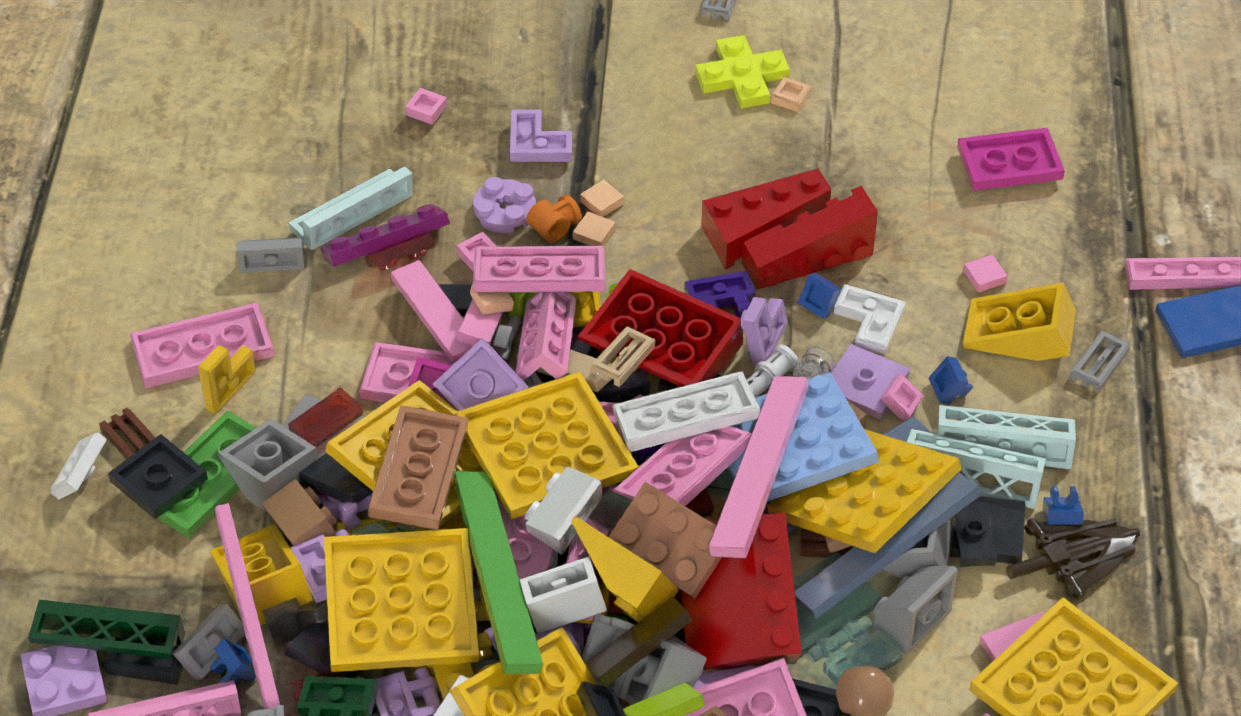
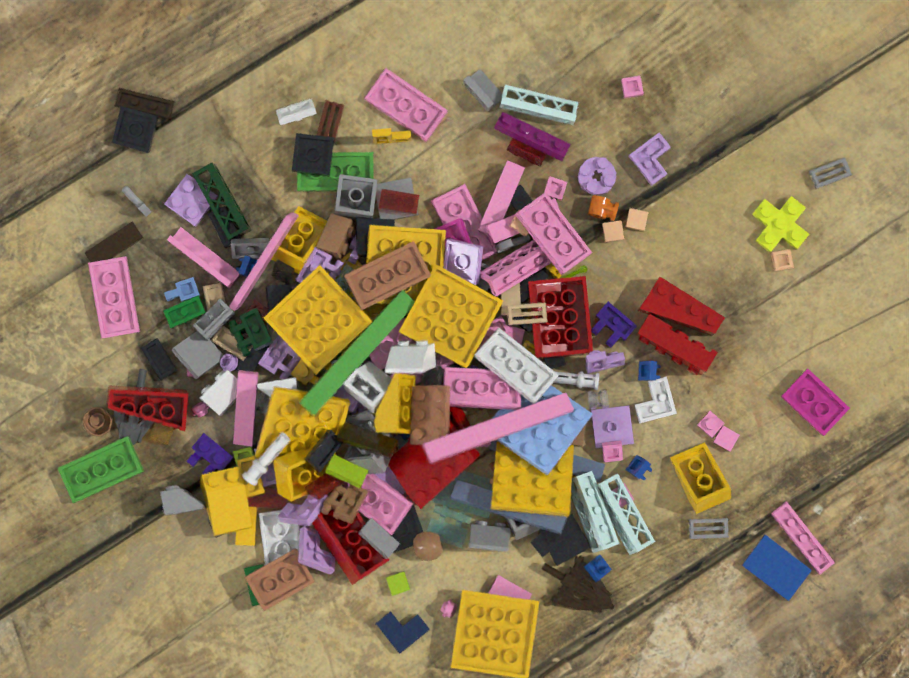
camera: 50 degrees right, 35 degrees up
(951, 278) = (710, 424): none -> bright pink plate

